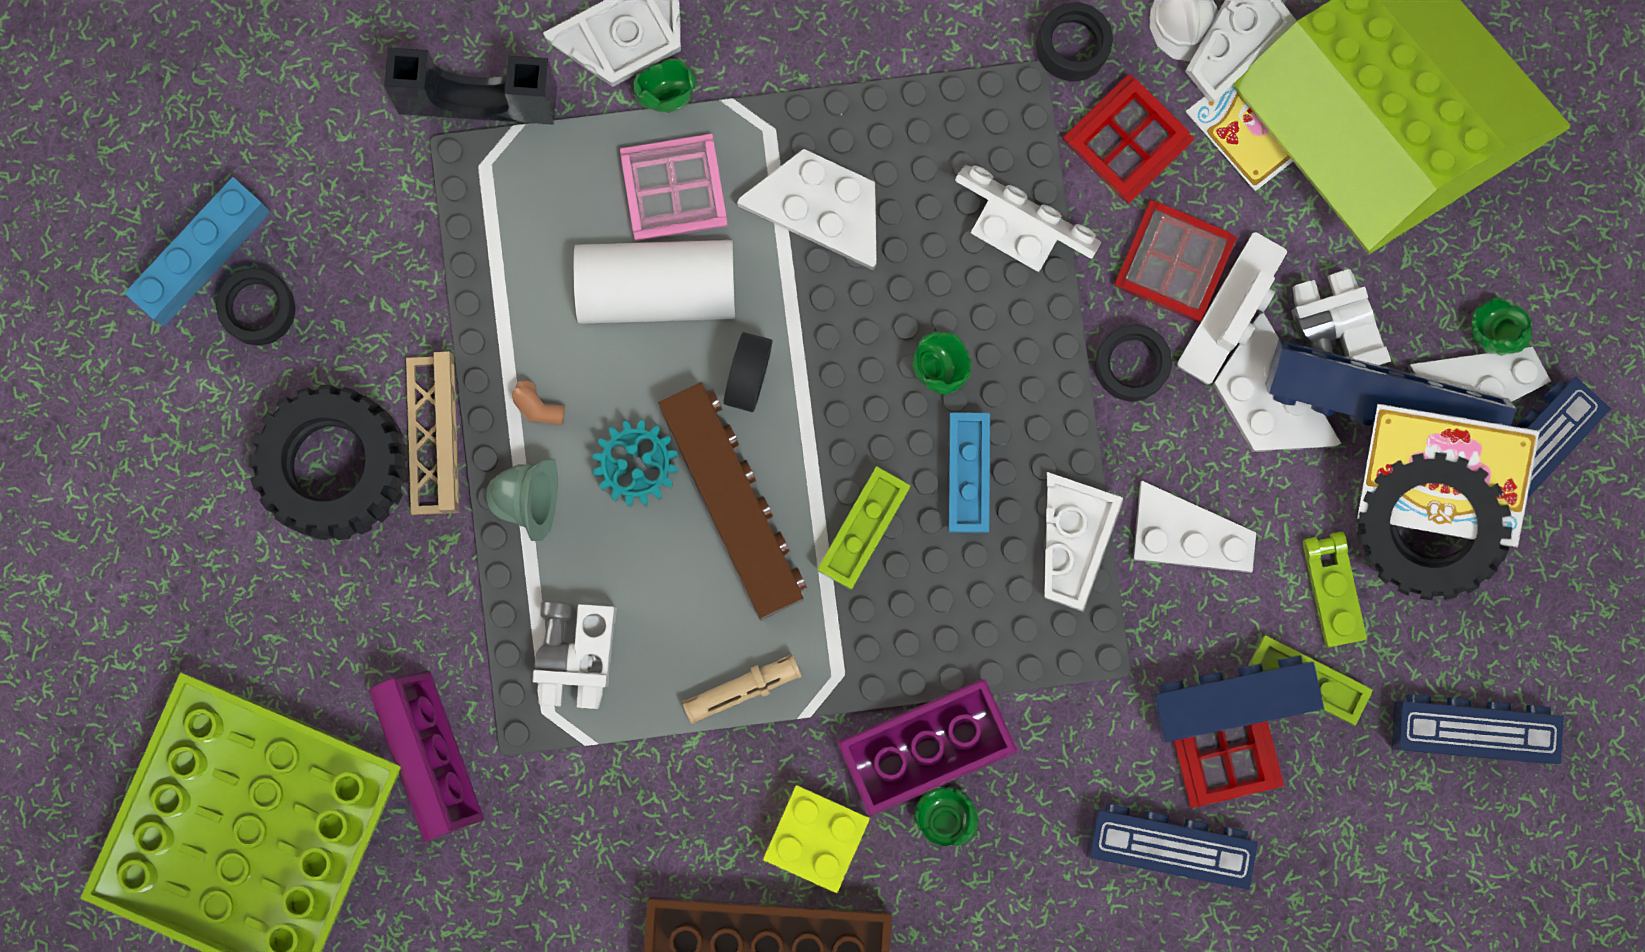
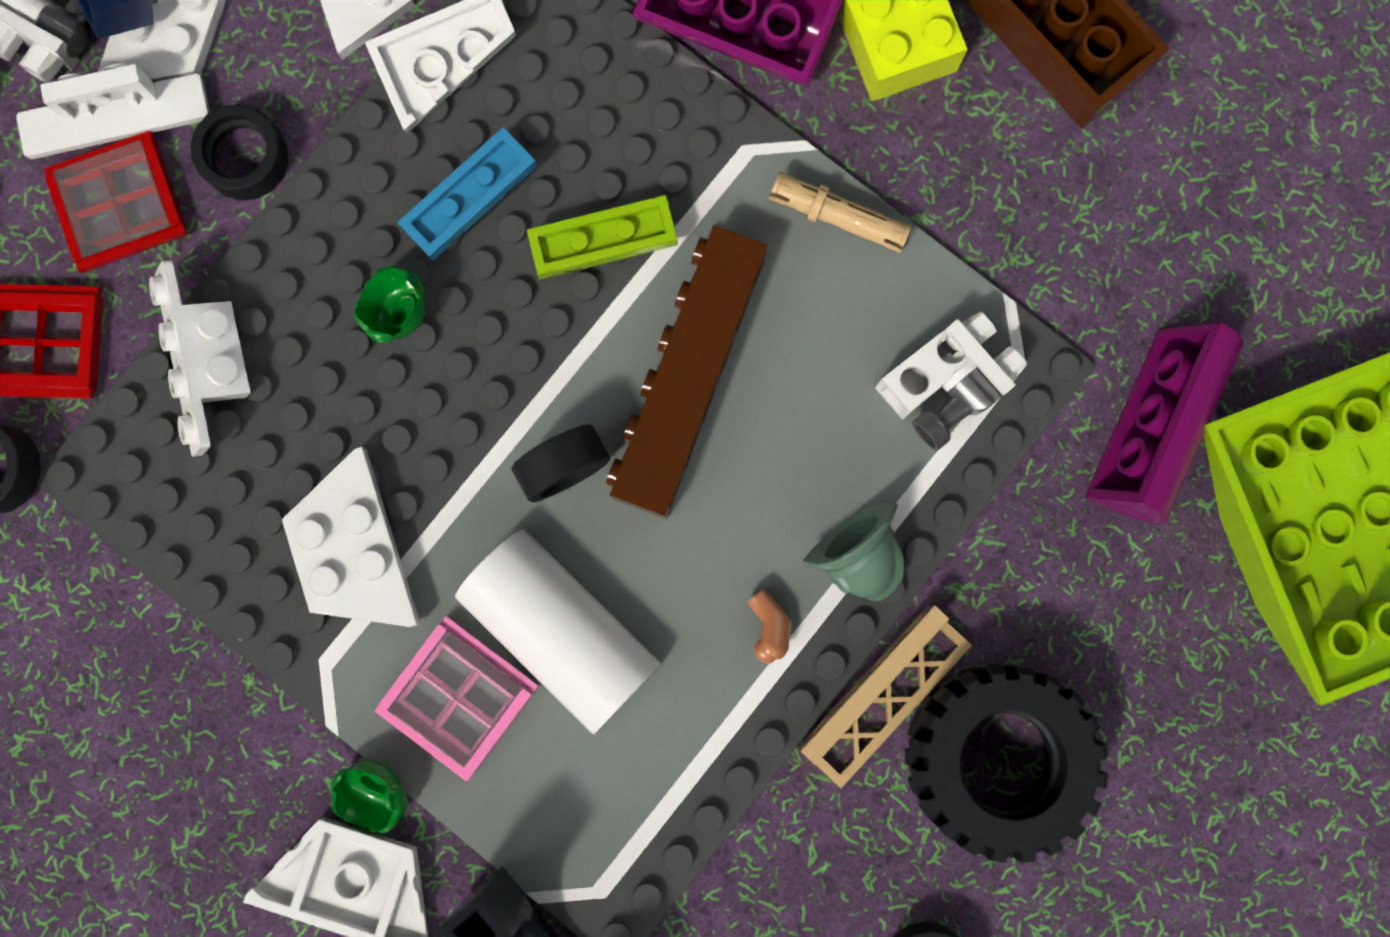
camera: 130 degrees left, 0 degrees up
(613, 469) = (713, 473): teal gear -> none

